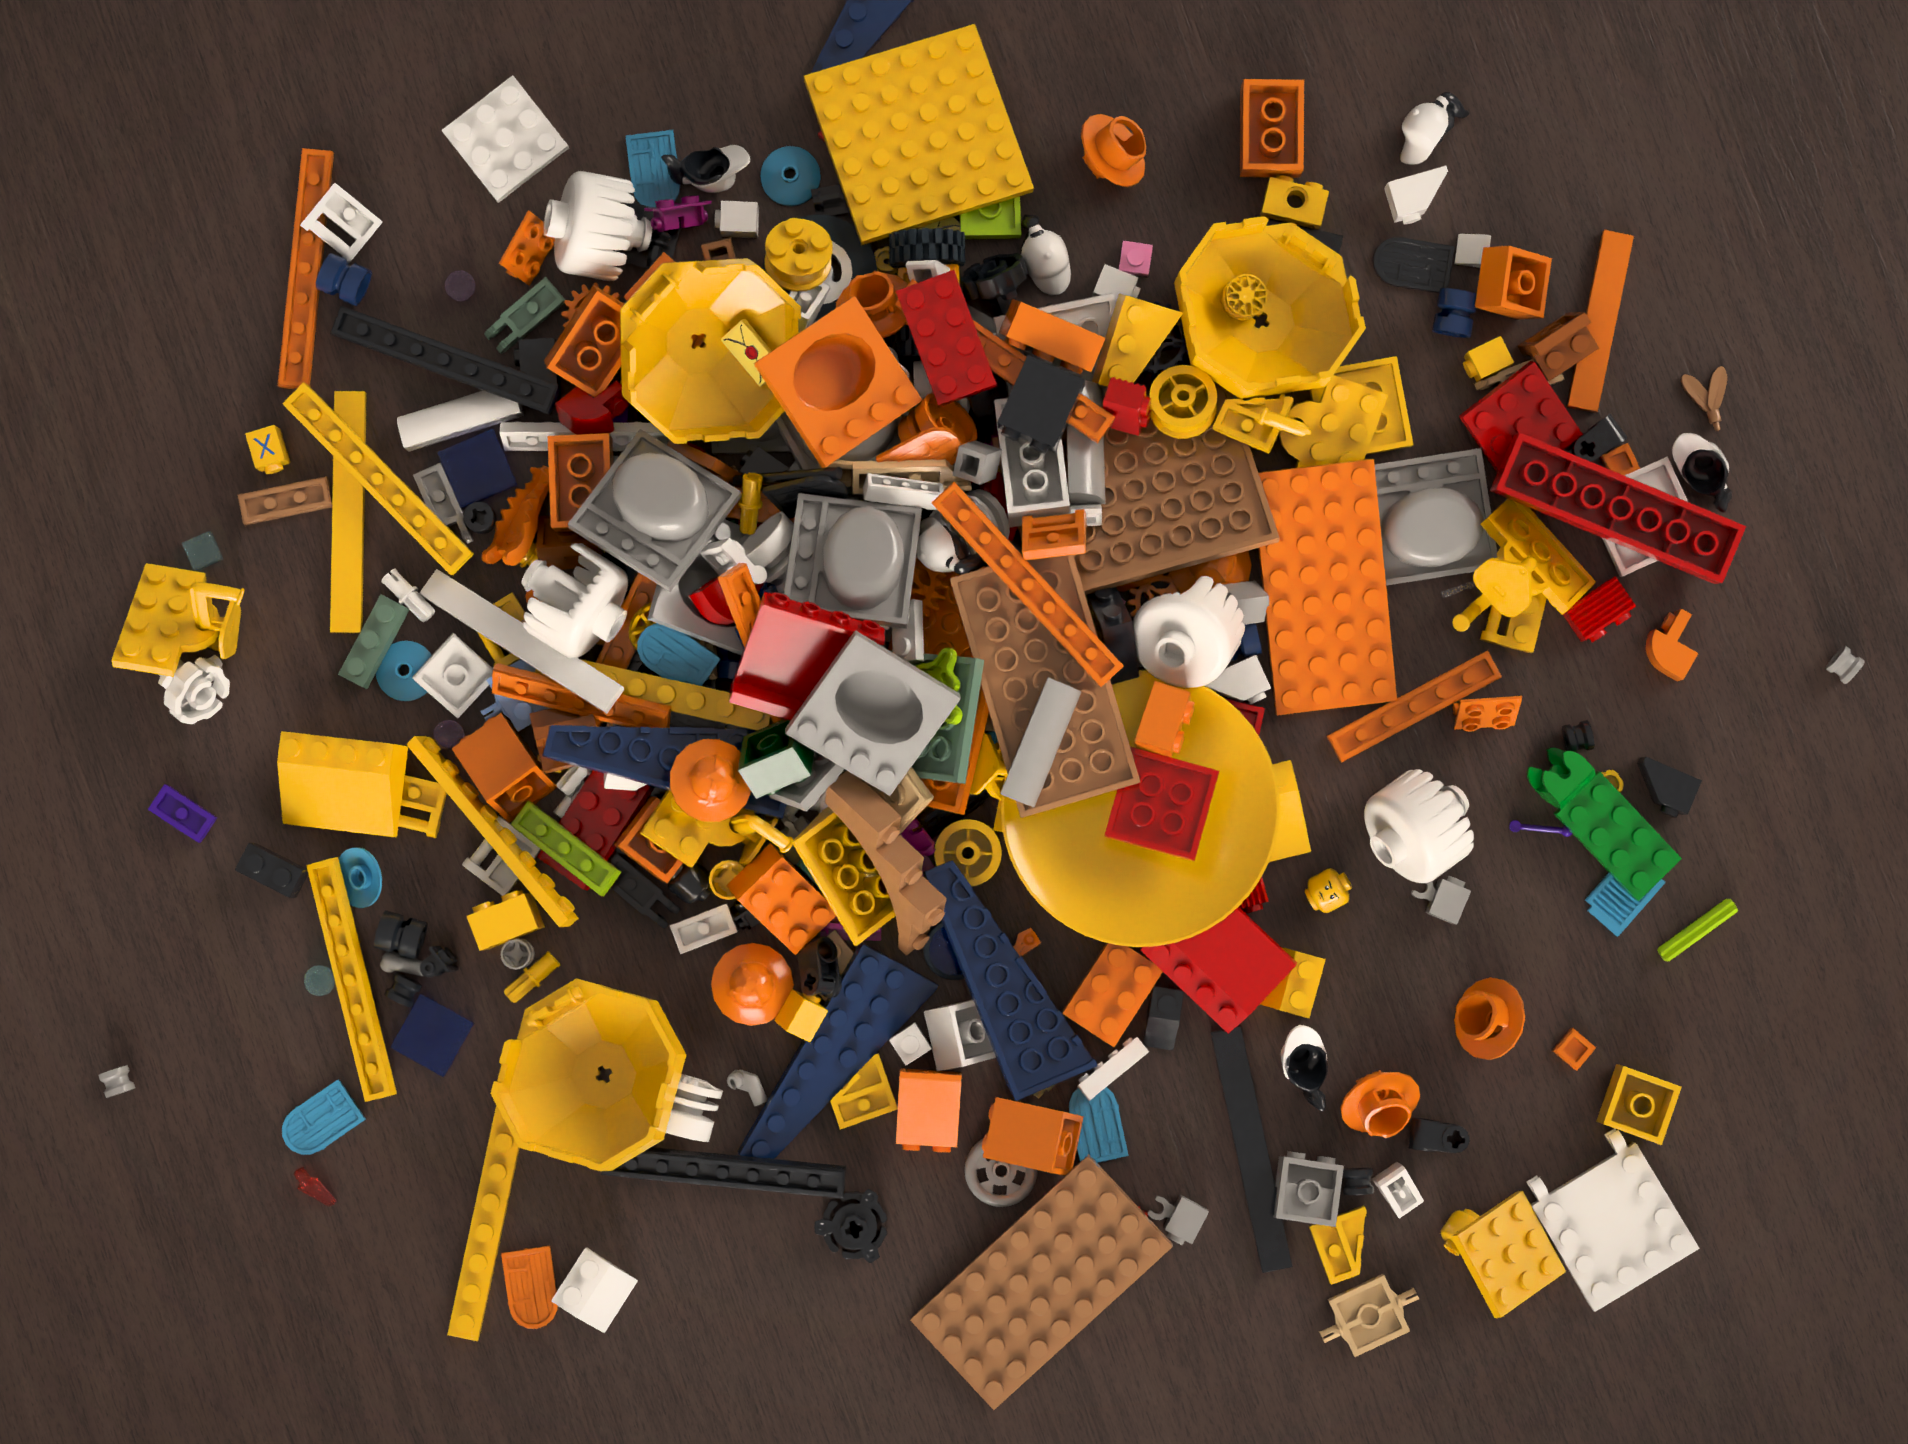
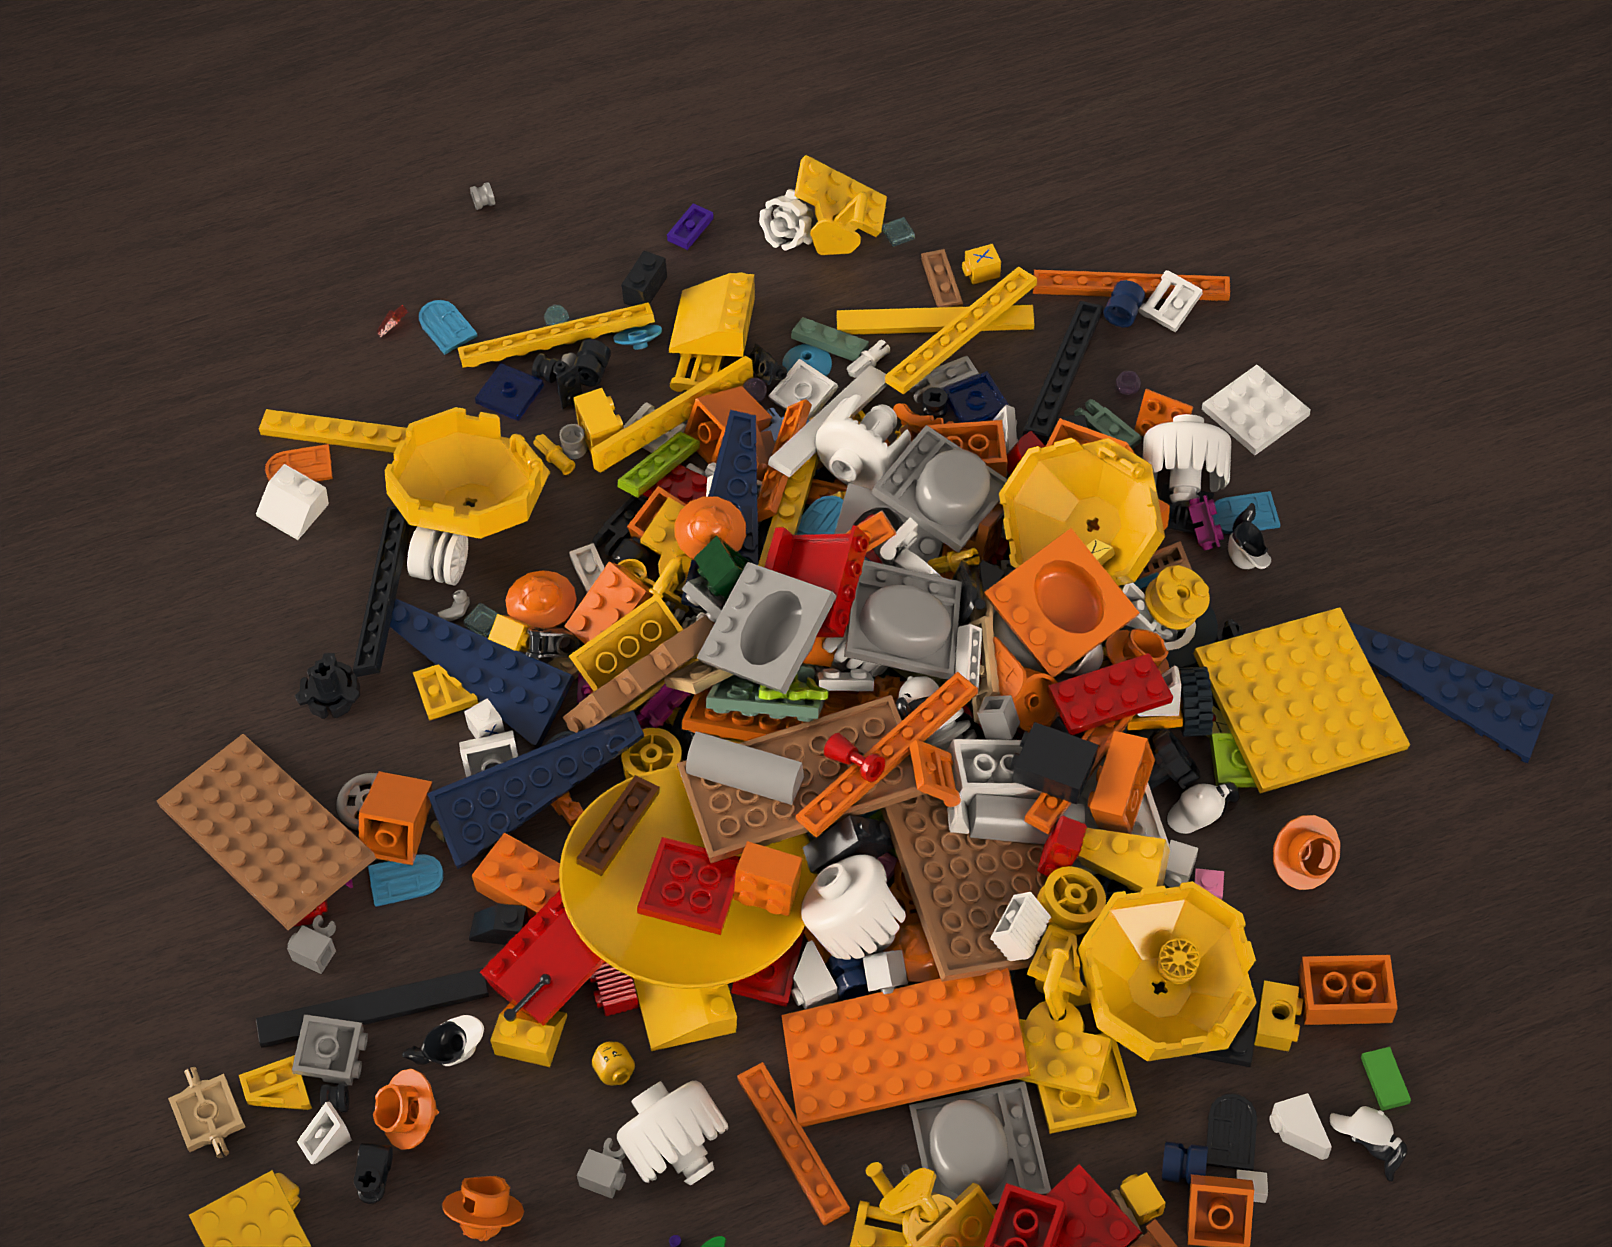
camera: 90 degrees right, 30 degrees down
(414, 723) = (766, 366): none -> black hinge
(455, 419) = (1013, 379): white brick -> none
(738, 219) = (1209, 568): white brick -> none
(765, 1053) = (481, 620): none -> clear light blue tile
(794, 190) = (1251, 620): dark azure dish -> none
(928, 1109) = (427, 736): orange slope -> none
(1031, 629) = (843, 751): none -> red piece
(1086, 883) = (618, 825): none -> reddish brown plate
(1116, 1065) = (453, 885): white piece -> none
(1222, 455) = (1021, 927): none -> white brick
(1286, 997) = (510, 1014): none -> black hinge
(1361, 103) = (1385, 1078): none -> bright green tile
(1486, 712) = (786, 1203): orange hinge -> none

